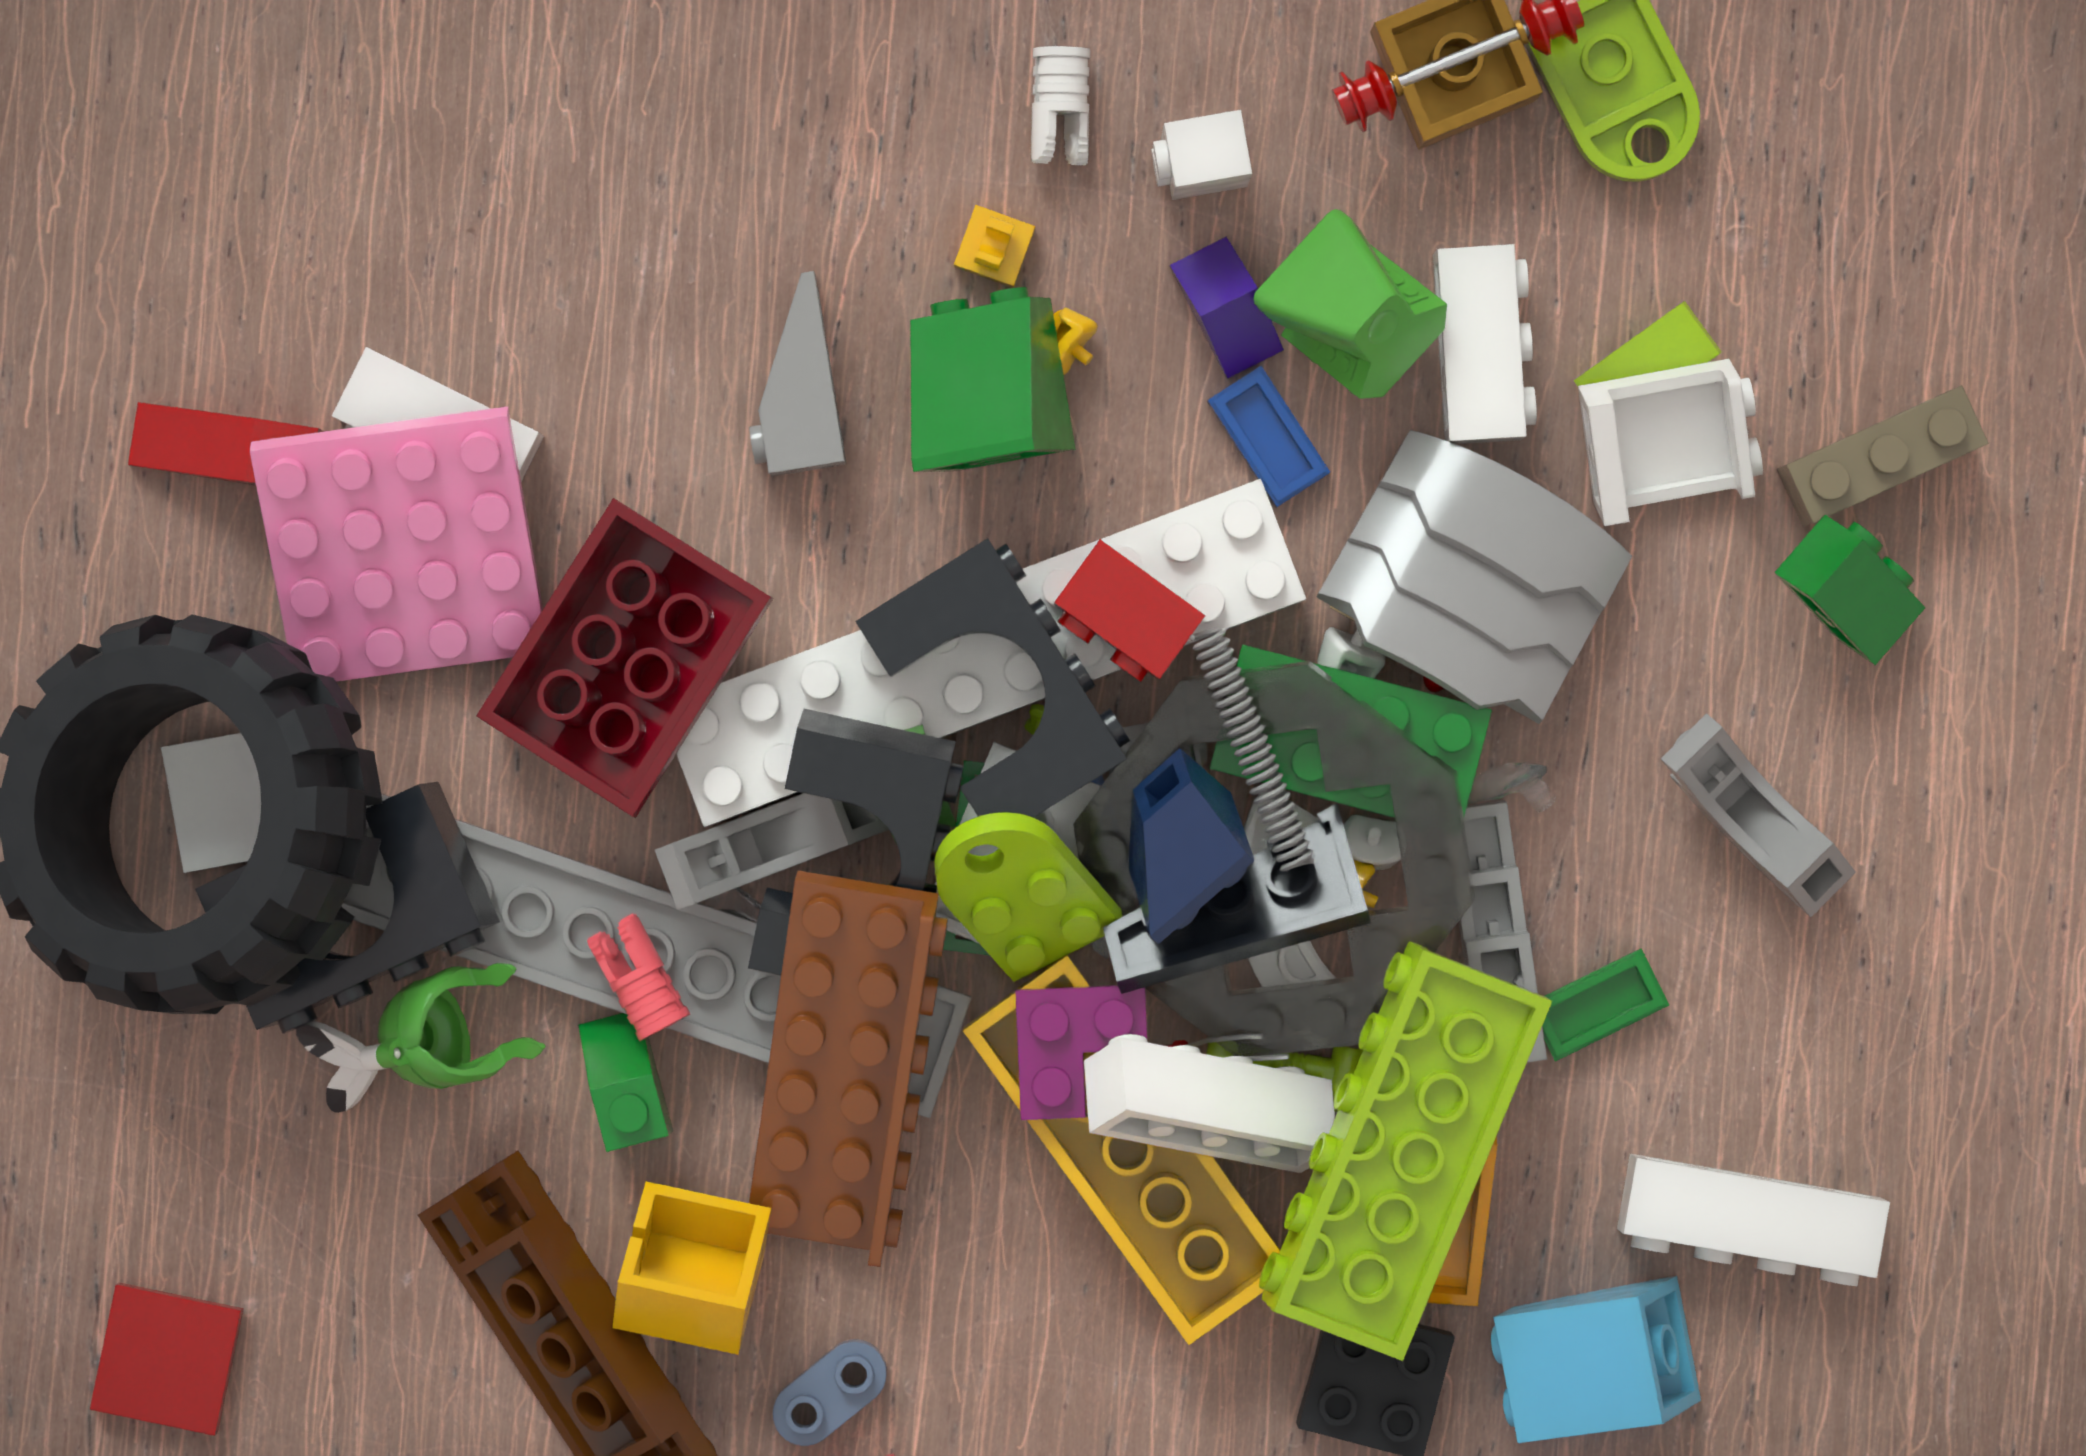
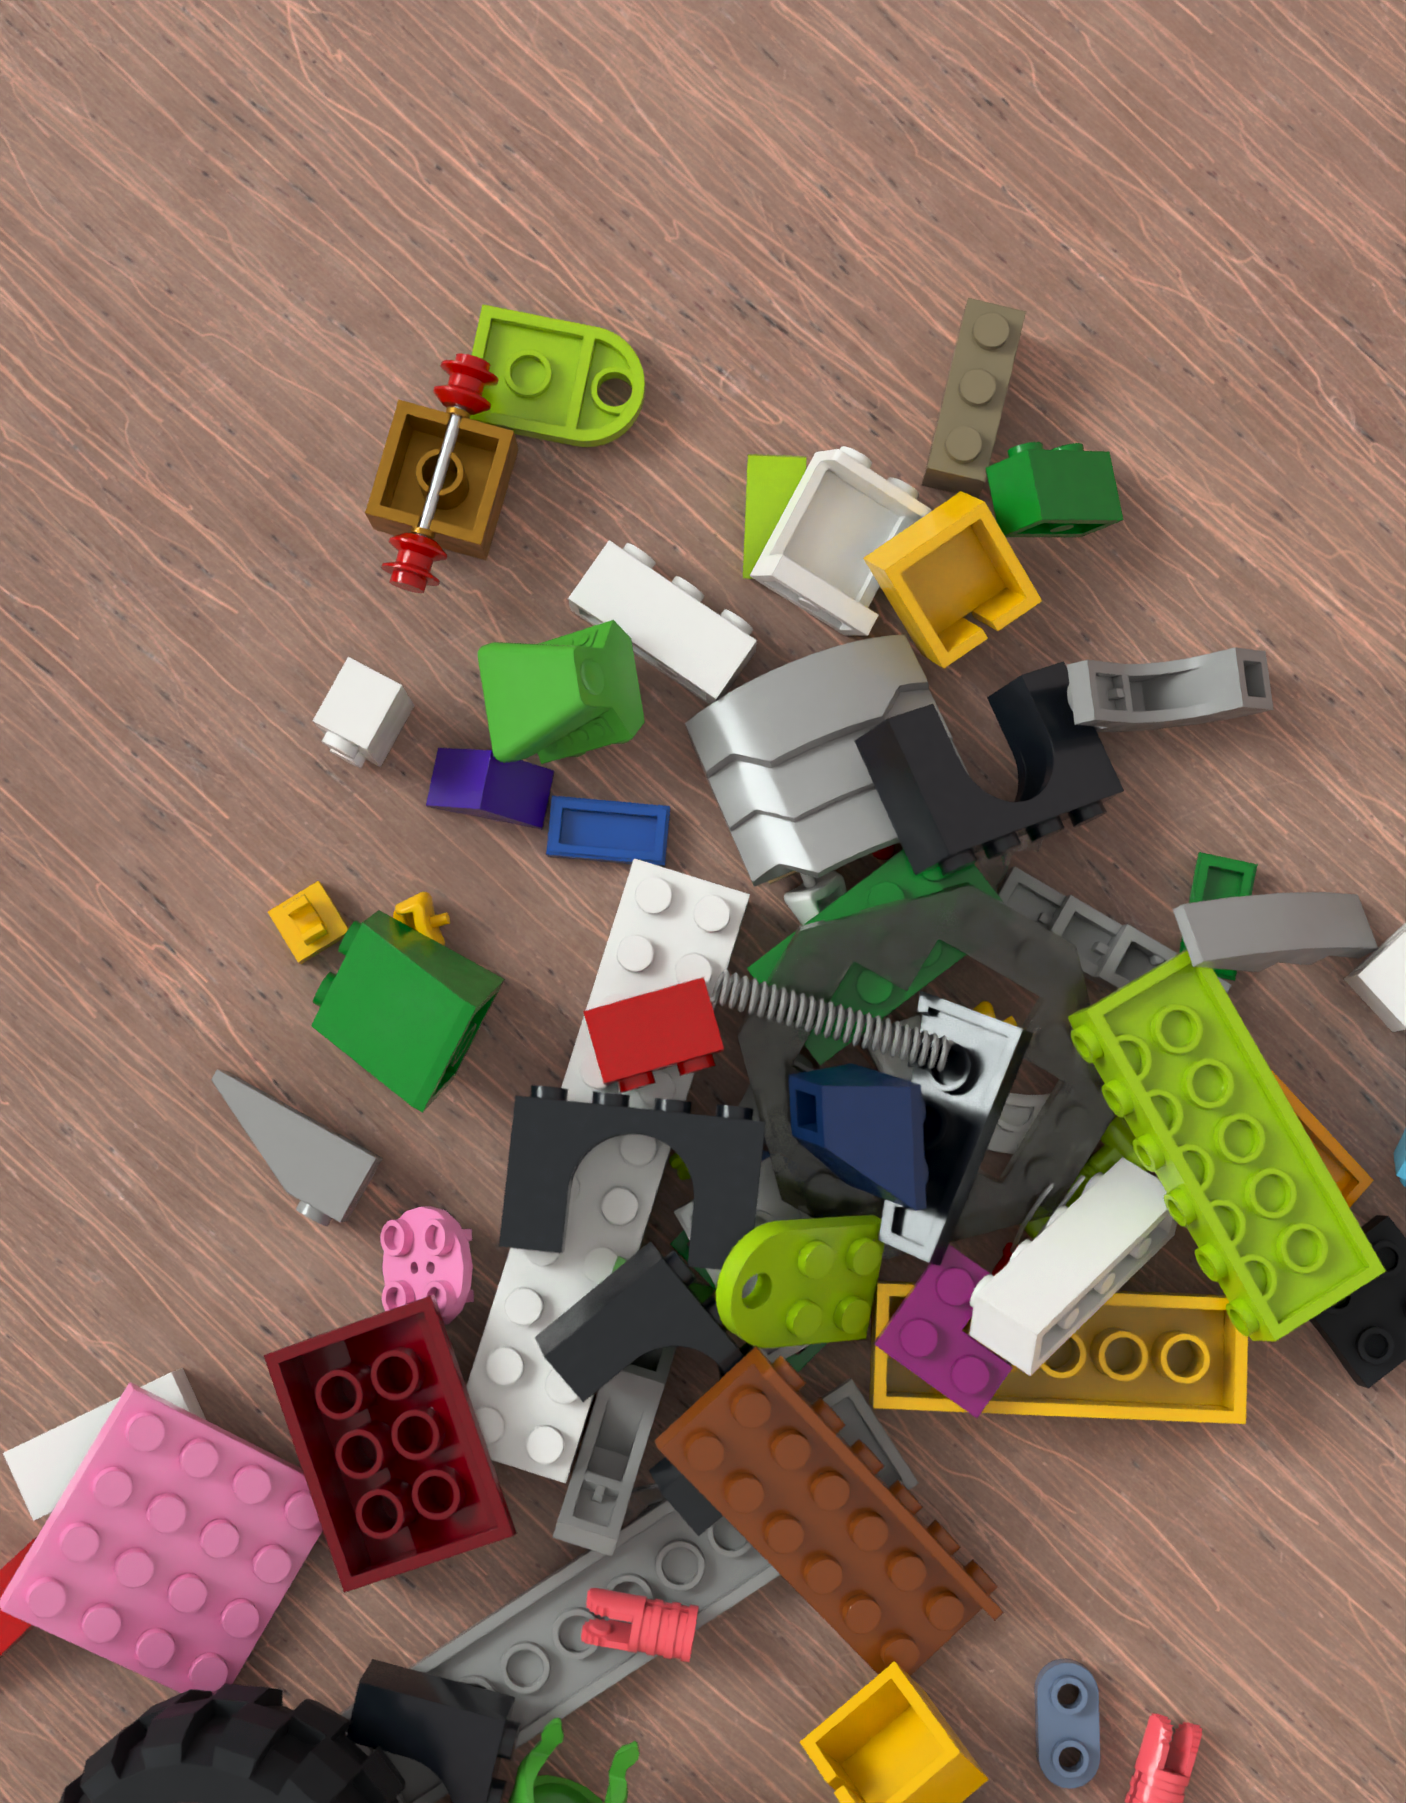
camera: 50 degrees left, 5 degrees down
(623, 1083) = (713, 1698): green slope -> none
(797, 565) = (424, 1257): none -> bright pink plate
(1060, 89) = (236, 784): white hinge -> none
(1373, 841) = (968, 984): white piece -> none
(1497, 709) = (948, 817): none -> black arch
(1619, 1057) = (1274, 929): none -> light grey slope
(1712, 548) = (946, 569): none -> yellow piece

